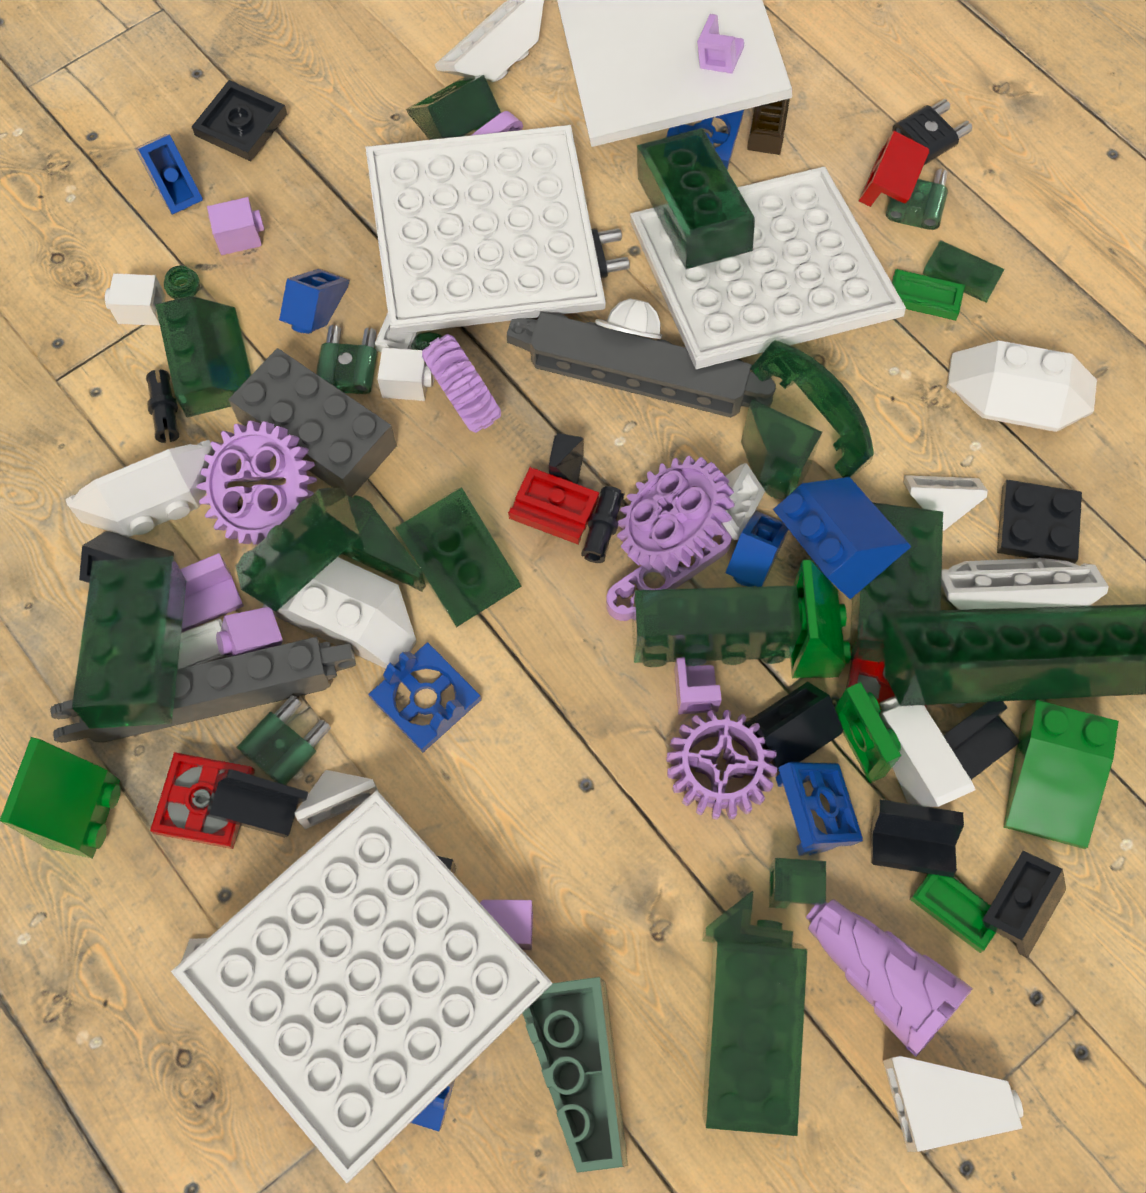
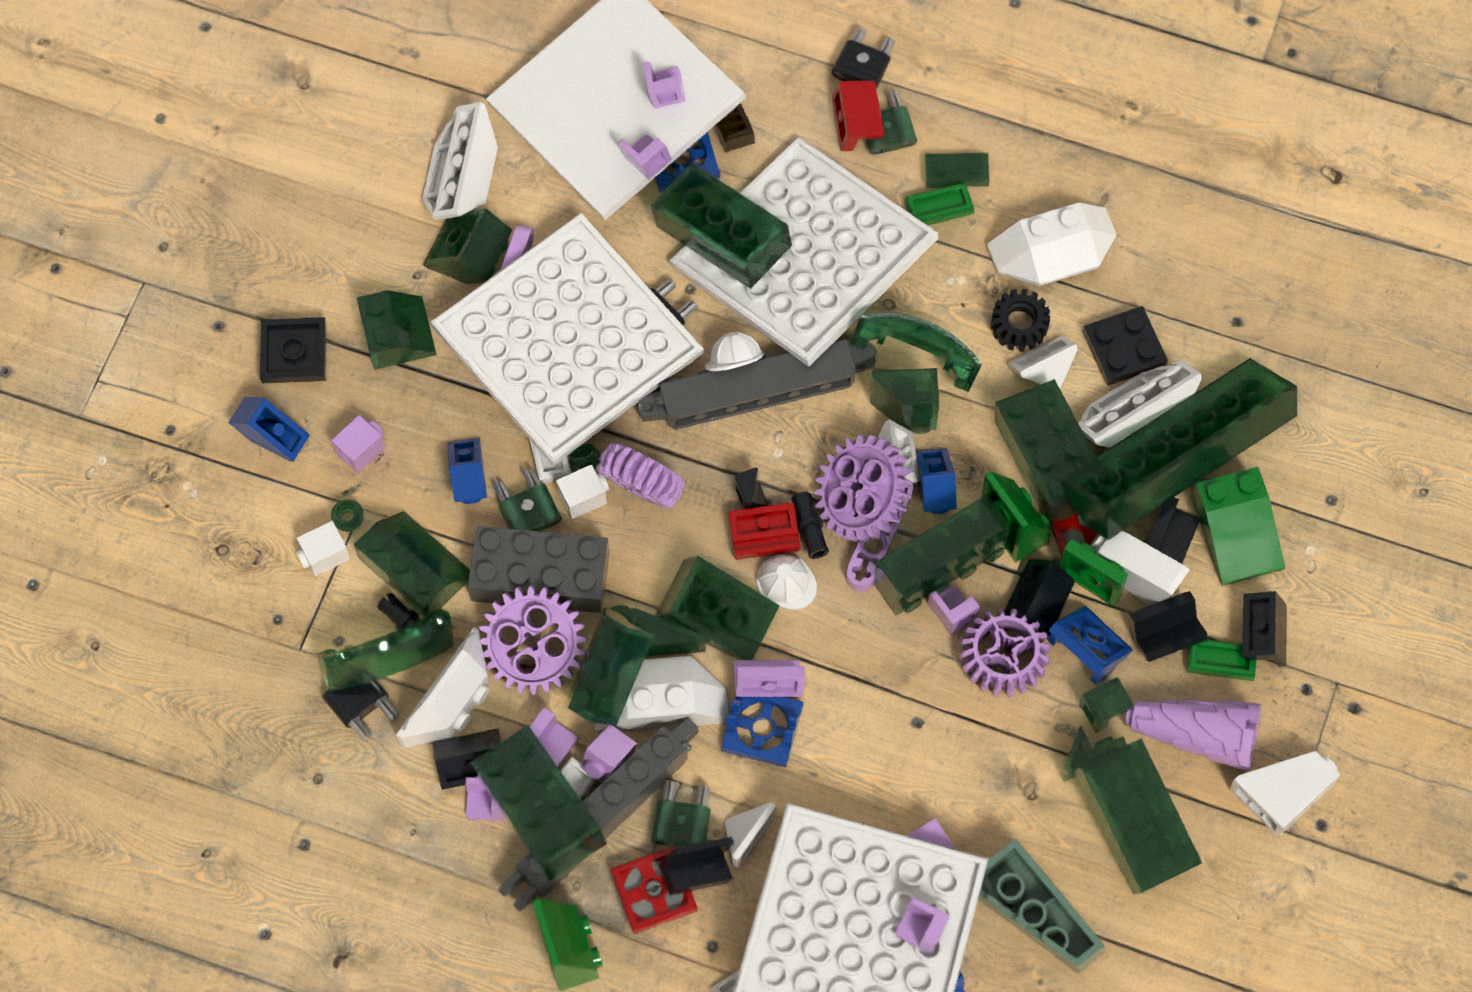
camera: 30 degrees left, 0 degrees up
(66, 450) = (357, 702): none -> black piece
(115, 419) = (387, 653): none -> clear green windscreen
(335, 143) = (395, 328): none -> clear green slope
(424, 1018) = (922, 925): none -> lavender panel
(459, 650) = (768, 678): none -> lavender panel
(546, 568) = (787, 581): none -> white piece
(663, 102) = (646, 155): none -> lavender panel
(842, 532) = (992, 434): blue slope -> none
(947, 422) = (1024, 303): none -> black tyre

